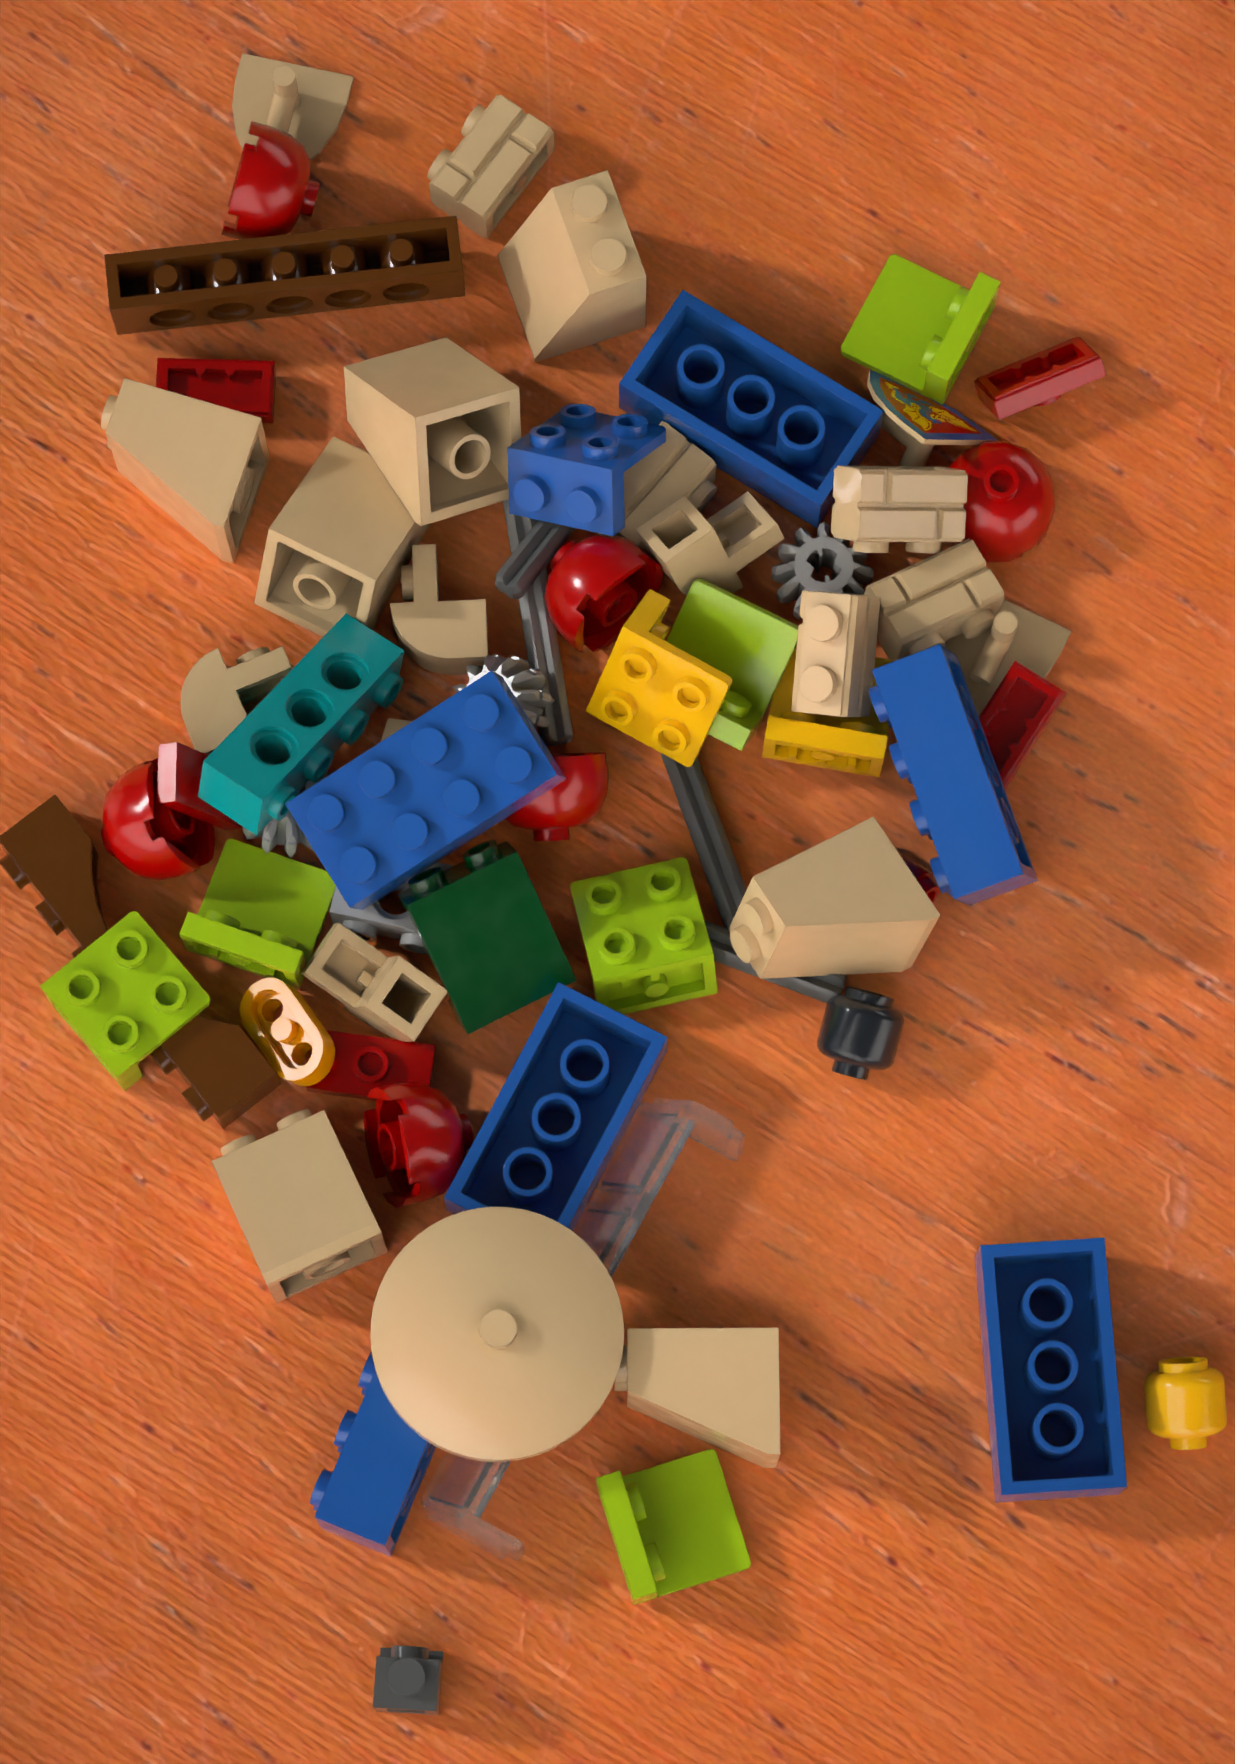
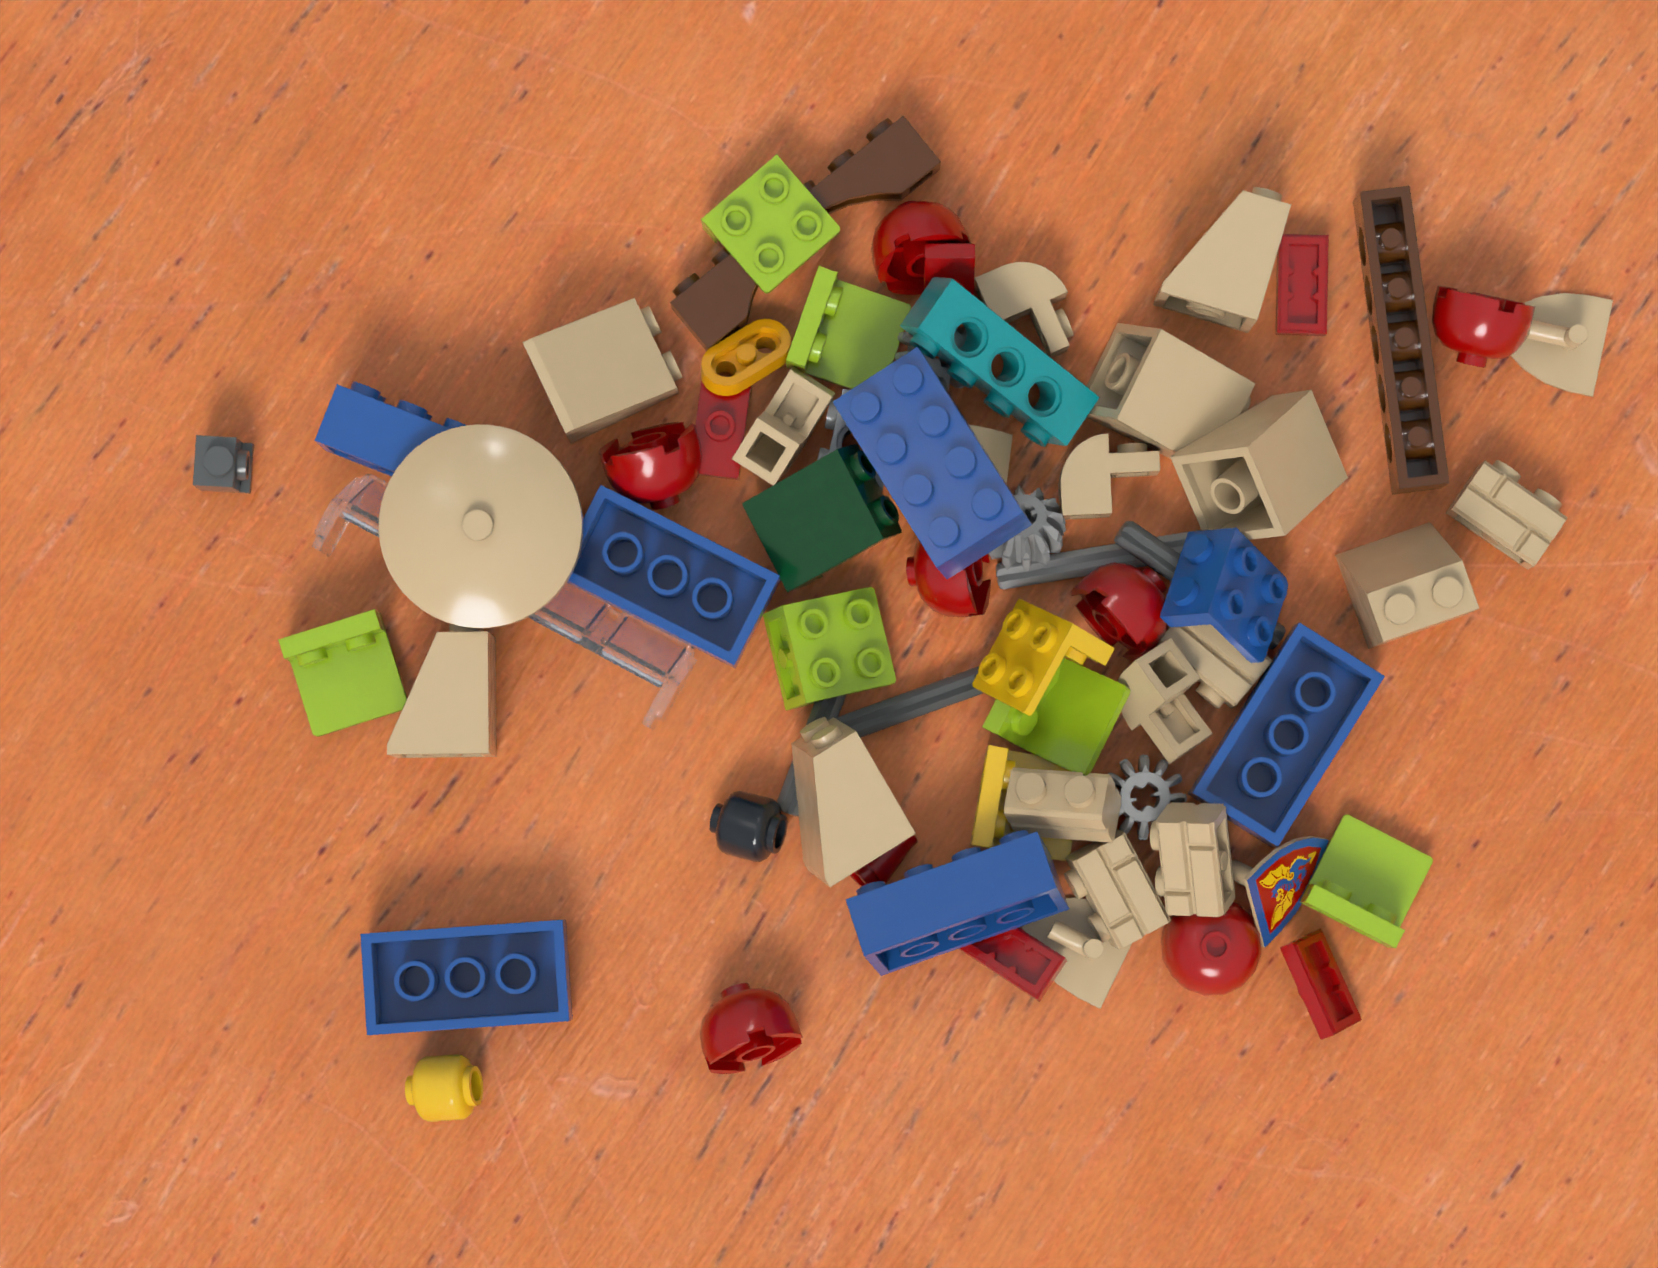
camera: 90 degrees right, 10 degrees up
(1105, 1031) = (748, 1027): none -> red cylinder

